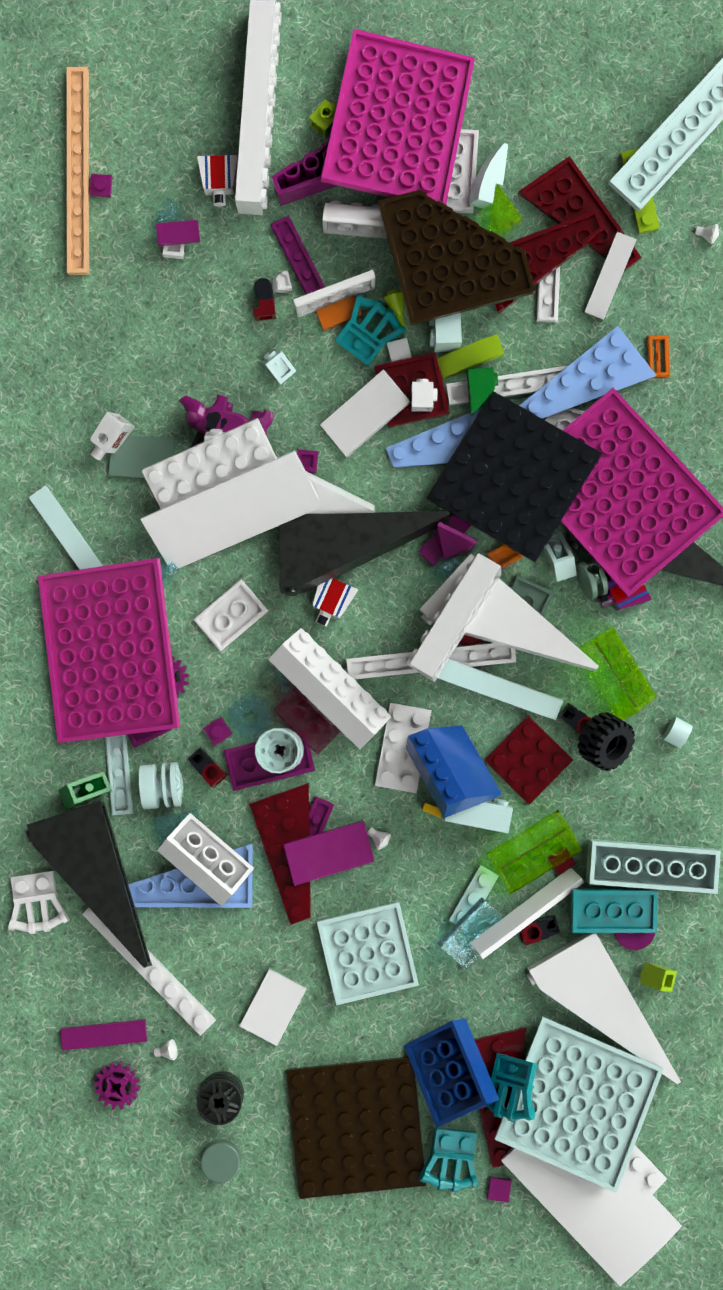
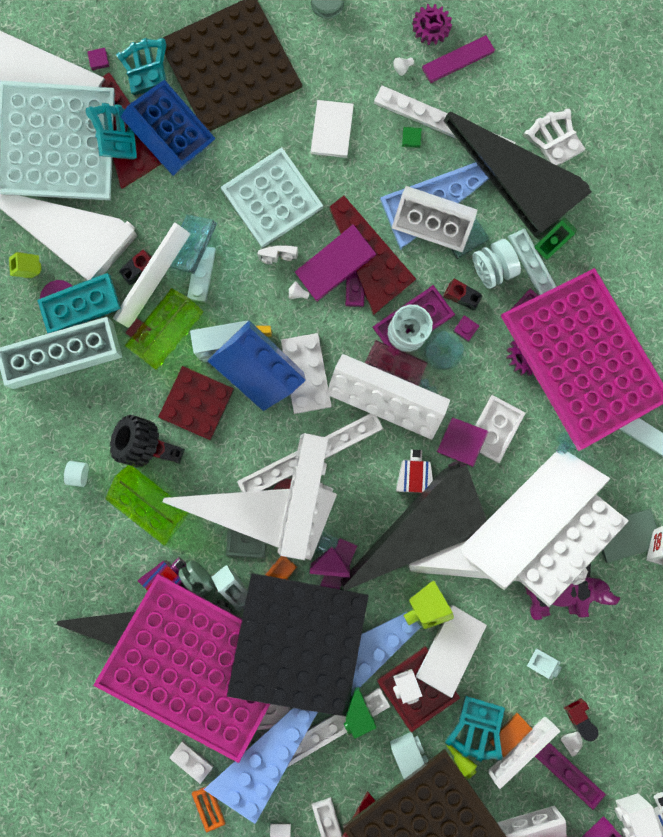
camera: 165 degrees right, 5 degrees down
(190, 964) = (411, 137): none -> green tile
(221, 1085) = (346, 42): pearl dark grey wheel -> none
(270, 614) = (462, 442): none -> magenta tile
(308, 459) = (484, 588): magenta plate -> none
(371, 463) = (429, 607): none -> lime torso
(391, 888) = (271, 254): none -> white slope
(399, 350) = (444, 721): white tile -> none
(471, 356) = (377, 741): lime slope -> none
(501, 689) = (241, 453): light aqua tile -> none
(659, 405) = (191, 762): none -> white plate

